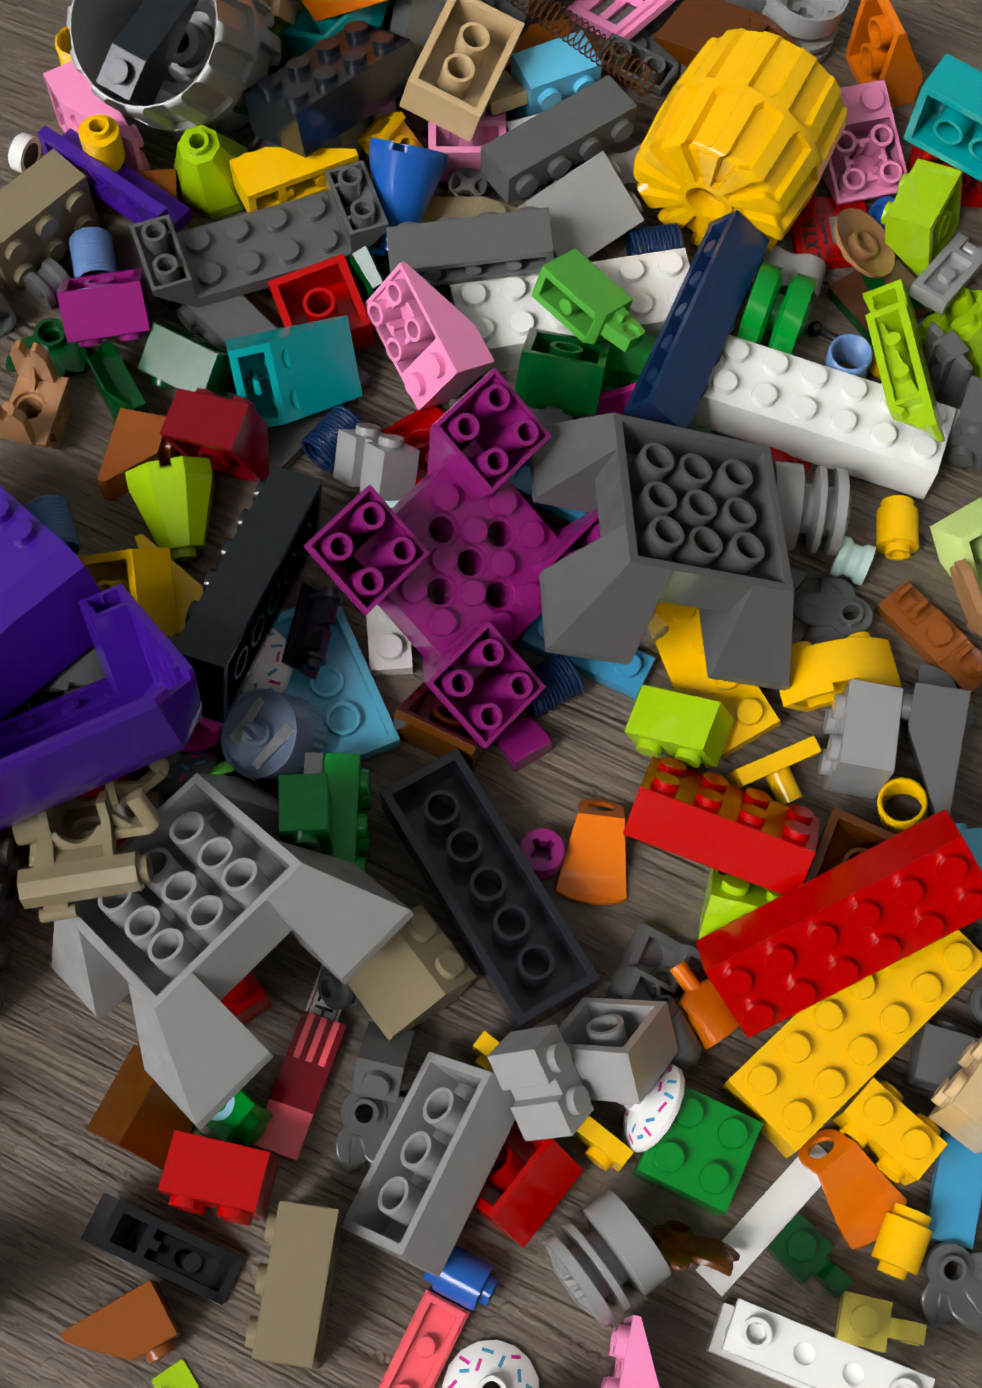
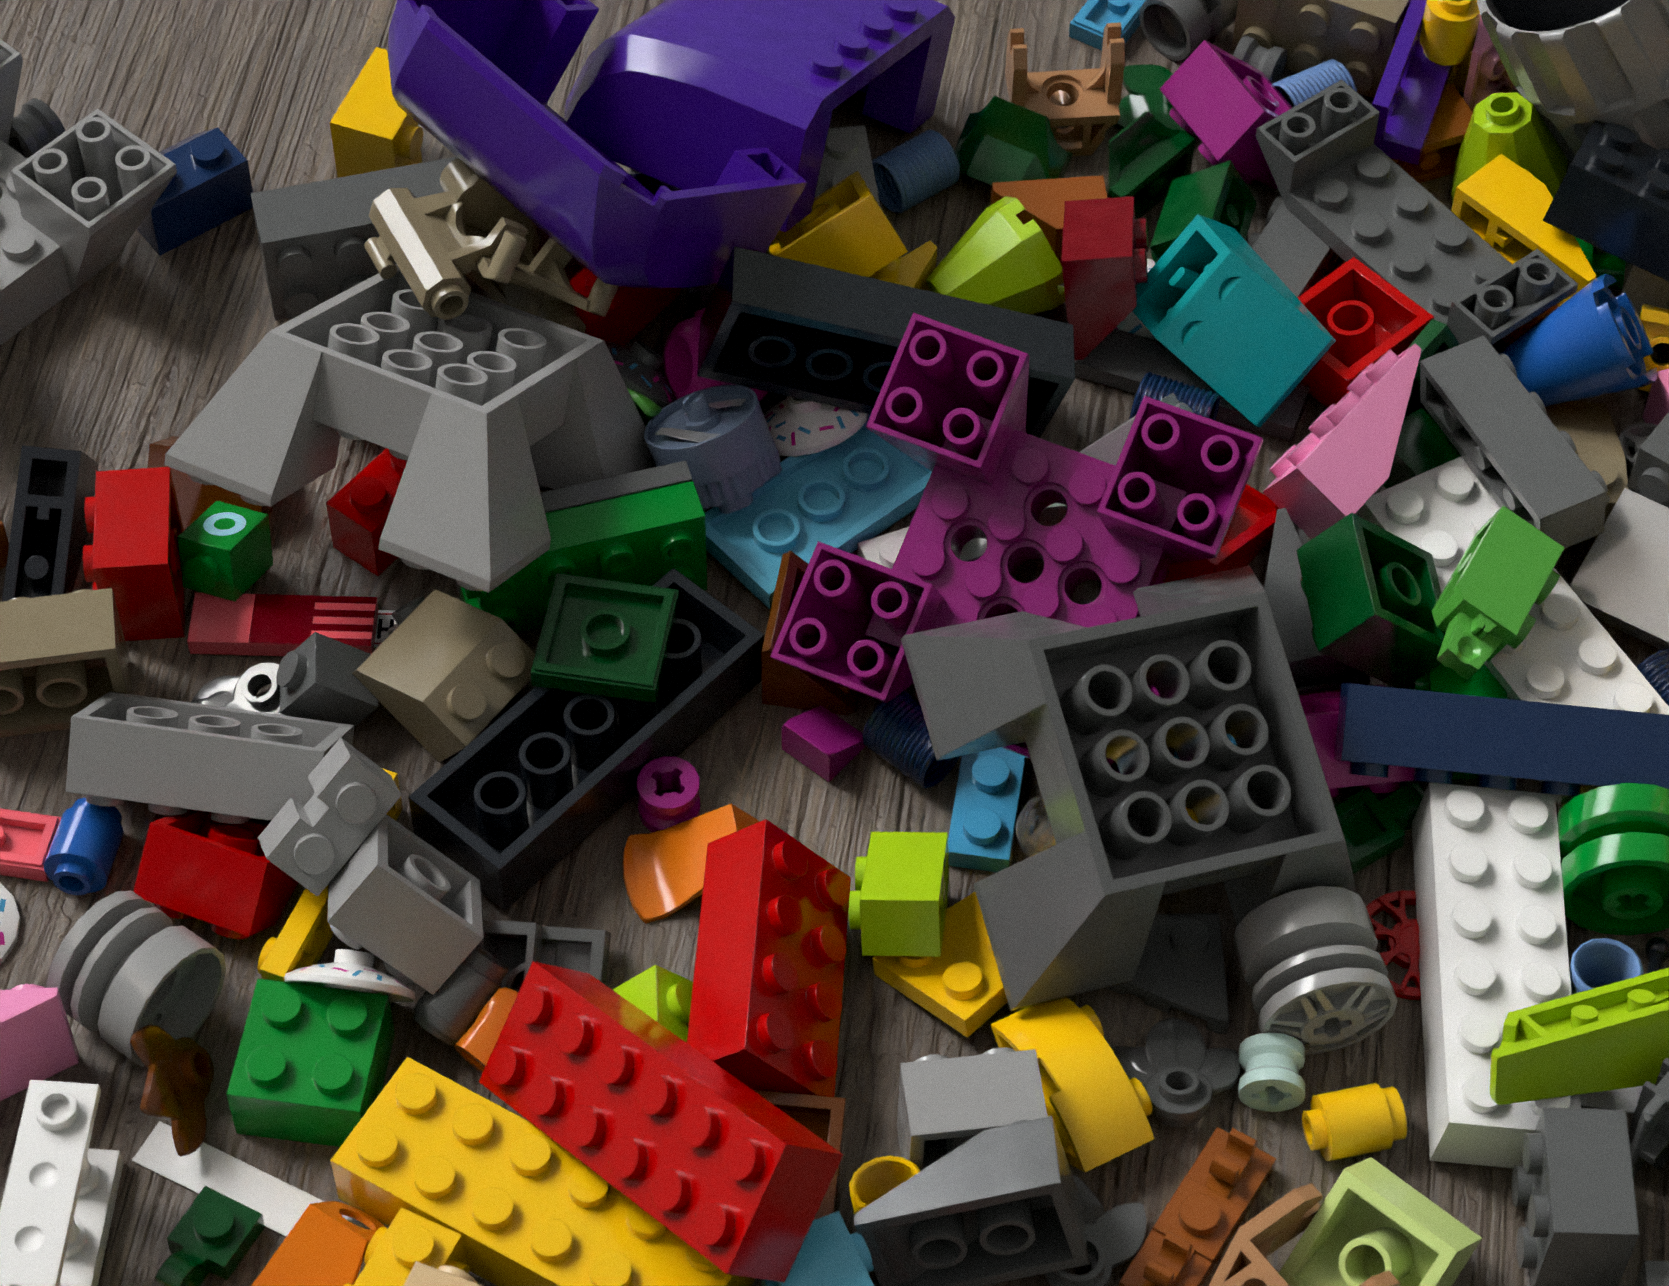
camera: 75 degrees right, 15 degrees down
(64, 460) = (1009, 145): none -> dark green slope
(306, 811) = (580, 453): dark green brick -> none
(310, 629) = (854, 453): black hinge -> none
(431, 853) = (605, 638): none -> dark green tile
(777, 770) = (893, 1037): yellow tile -> none

